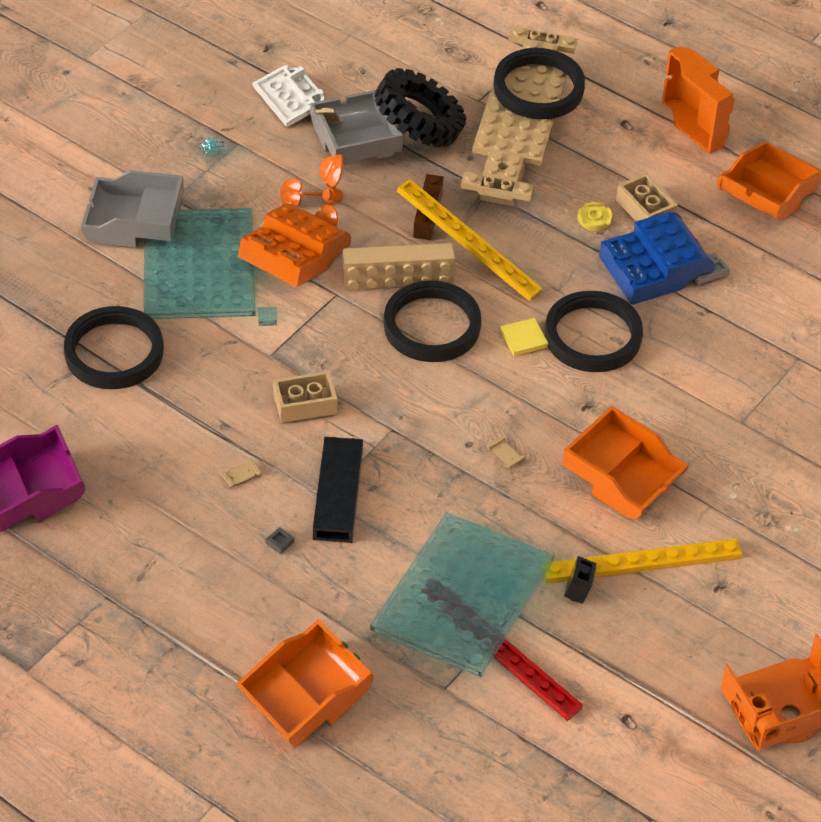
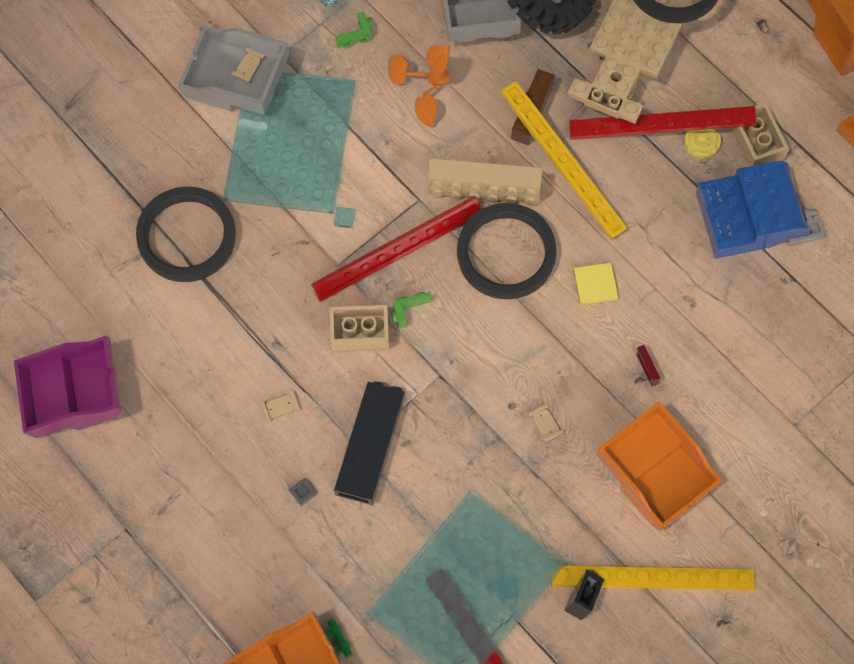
camera: 15 degrees right, 20 degrees up
(146, 202) = (248, 65): none -> tan piece
(248, 172) = (360, 35): none -> bright green bracket
(293, 245) = (385, 138): orange piece -> none
(322, 333) = (395, 249): none -> red plate
(346, 373) = (404, 303): none -> bright green bracket
(554, 202) = (663, 123): none -> red plate
(587, 362) = (677, 250): black tyre -> none
(591, 392) = (647, 365): none -> dark red tile

